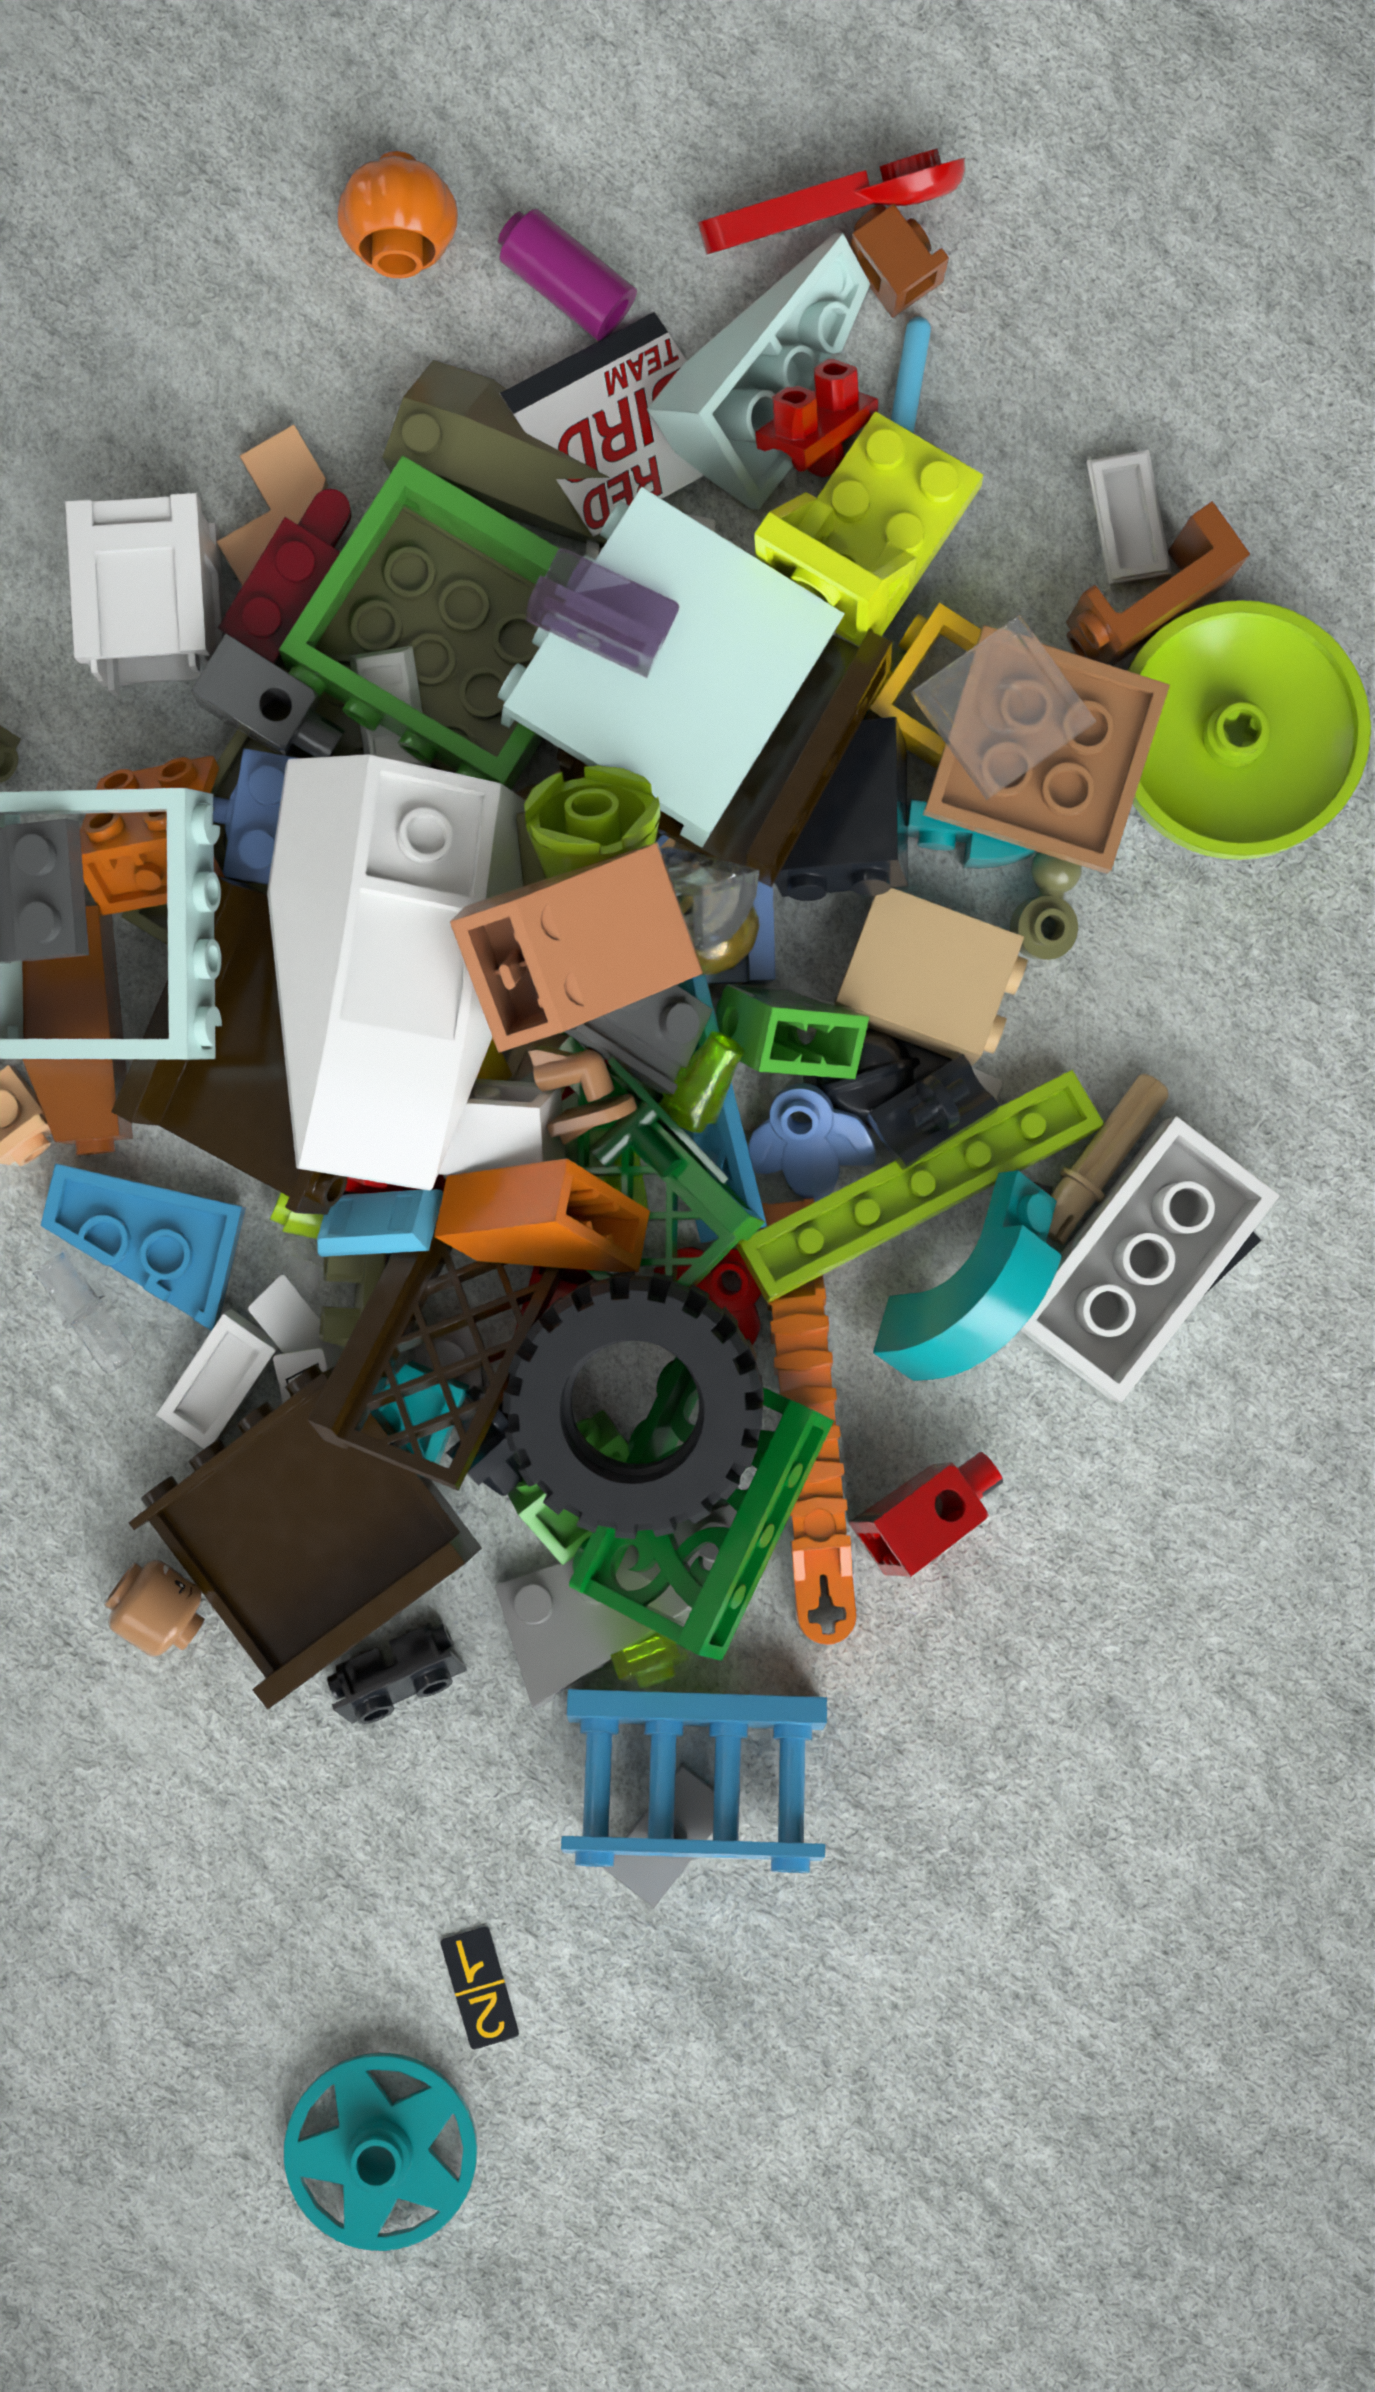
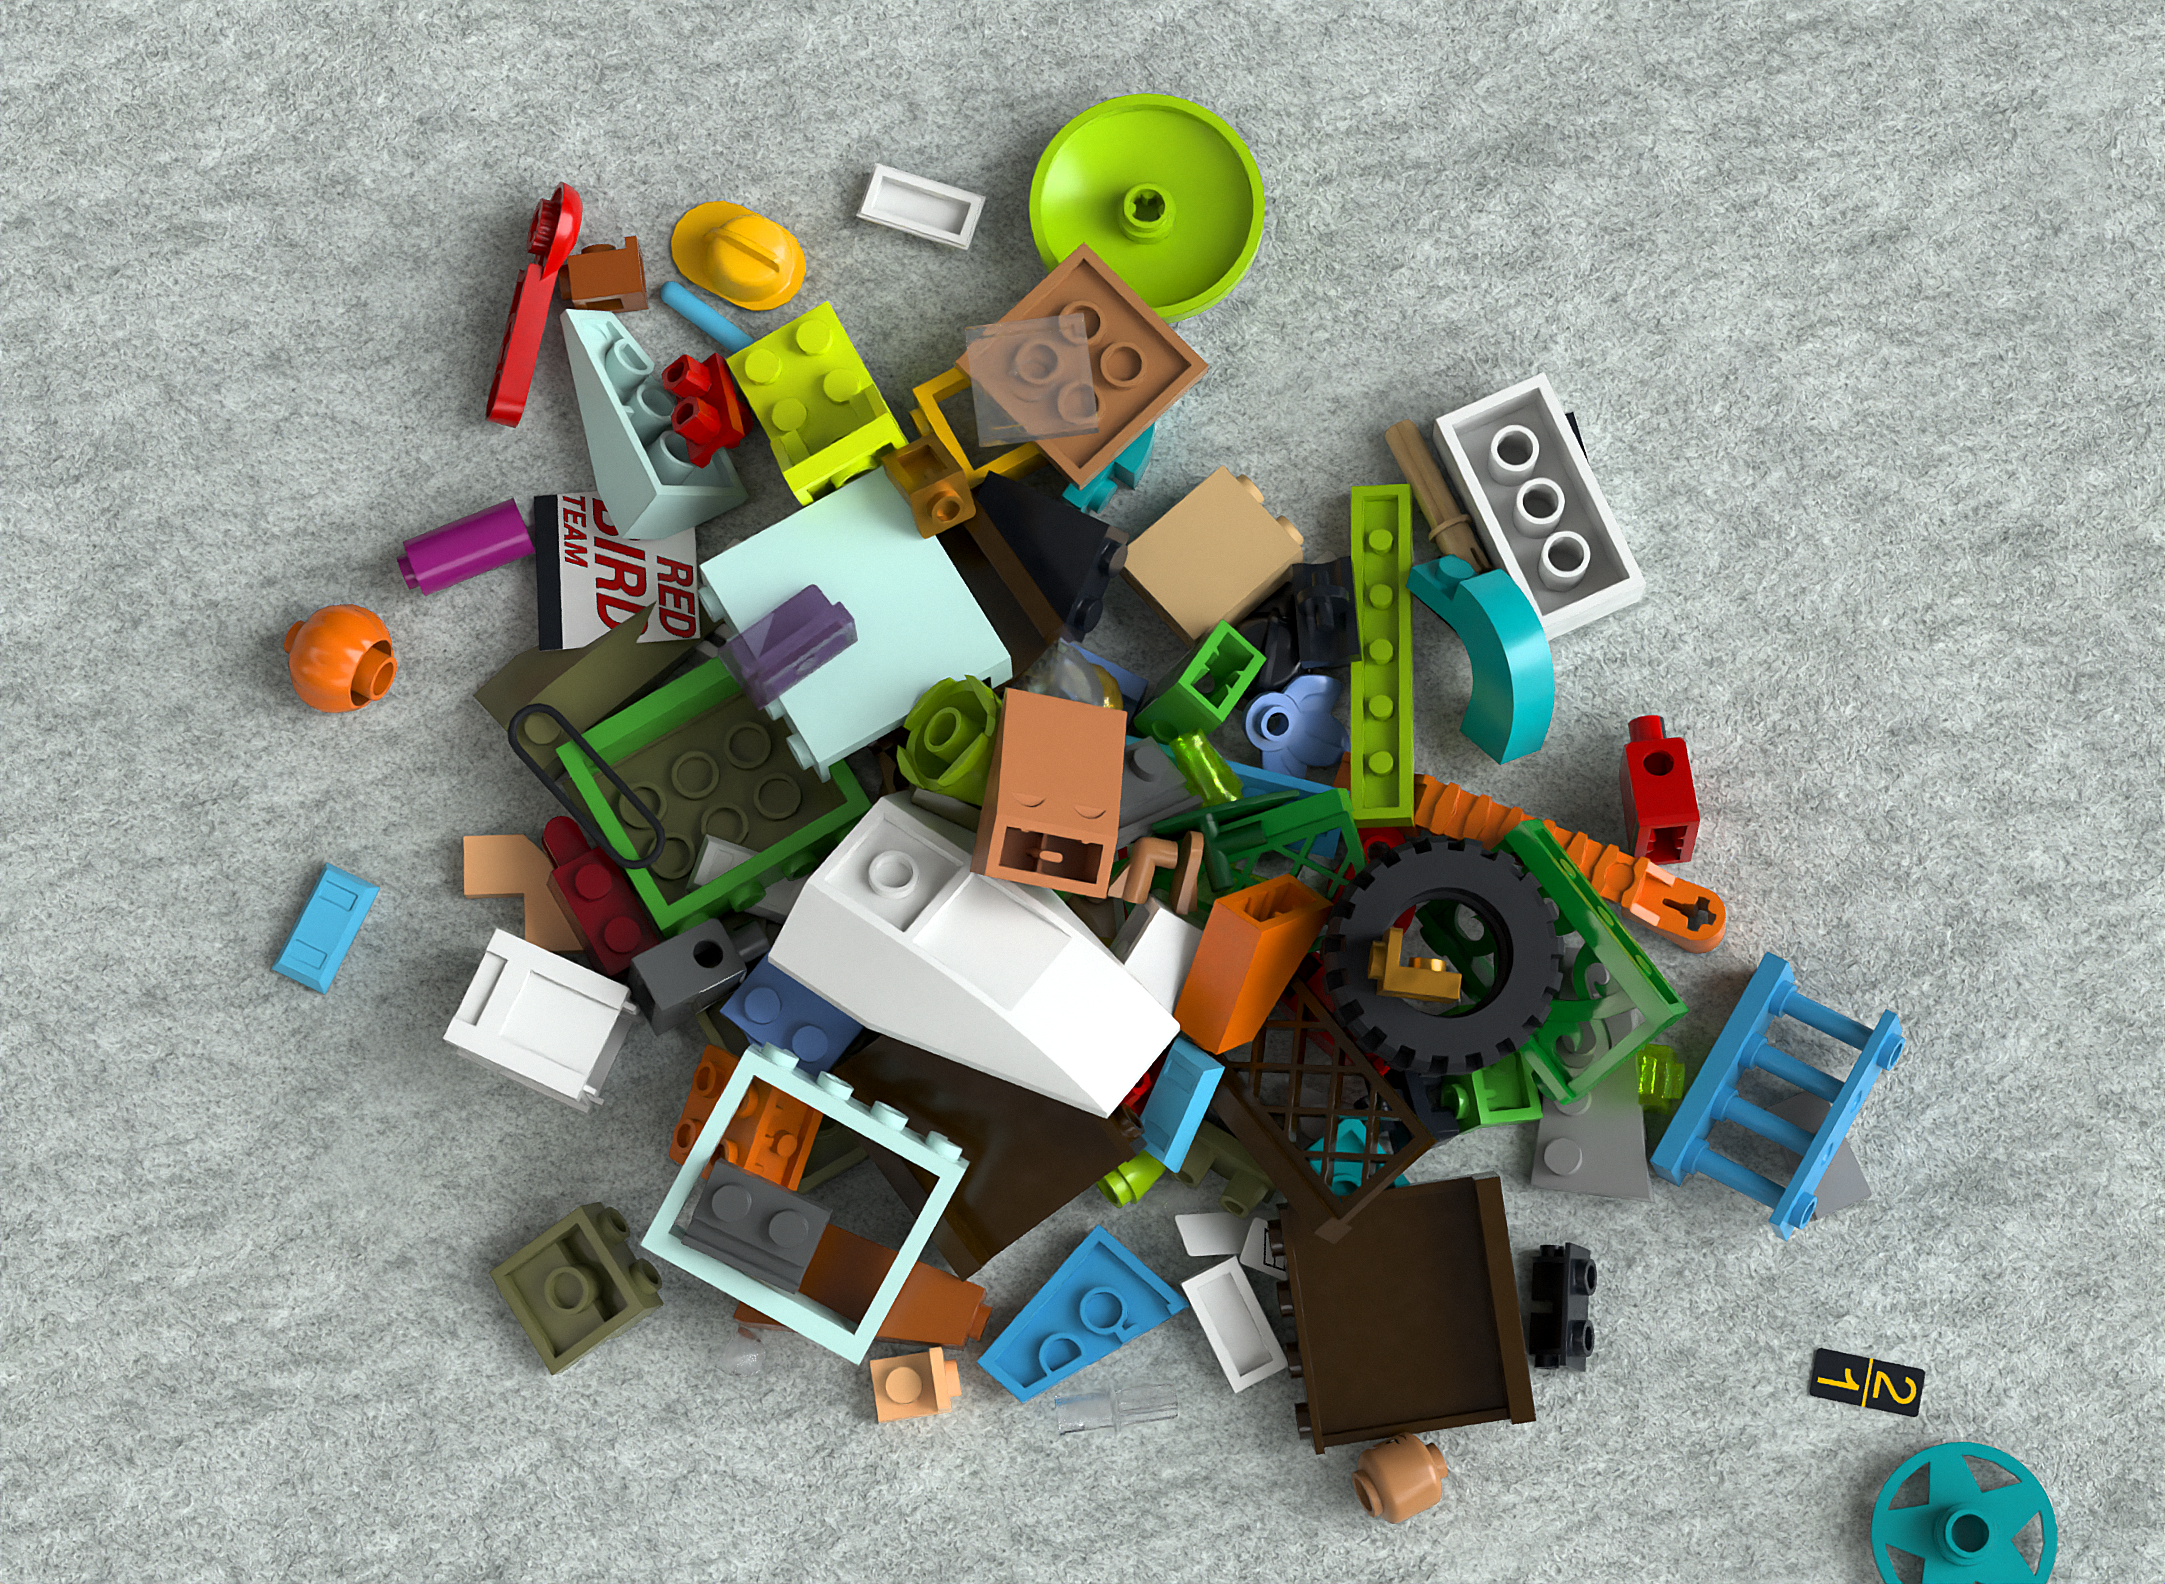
camera: 55 degrees left, 10 degrees down
(145, 348) = (325, 928): none -> medium azure tile
(354, 495) = (566, 802): none -> black piece
(580, 1402) = (1422, 979): none -> pearl gold bracket
(838, 663) = (930, 484): none -> pearl gold bracket
(989, 373) = (738, 255): none -> yellow piece
(1053, 879) = (1185, 420): olive plate -> none
(1208, 558) = (993, 161): dark orange panel -> none

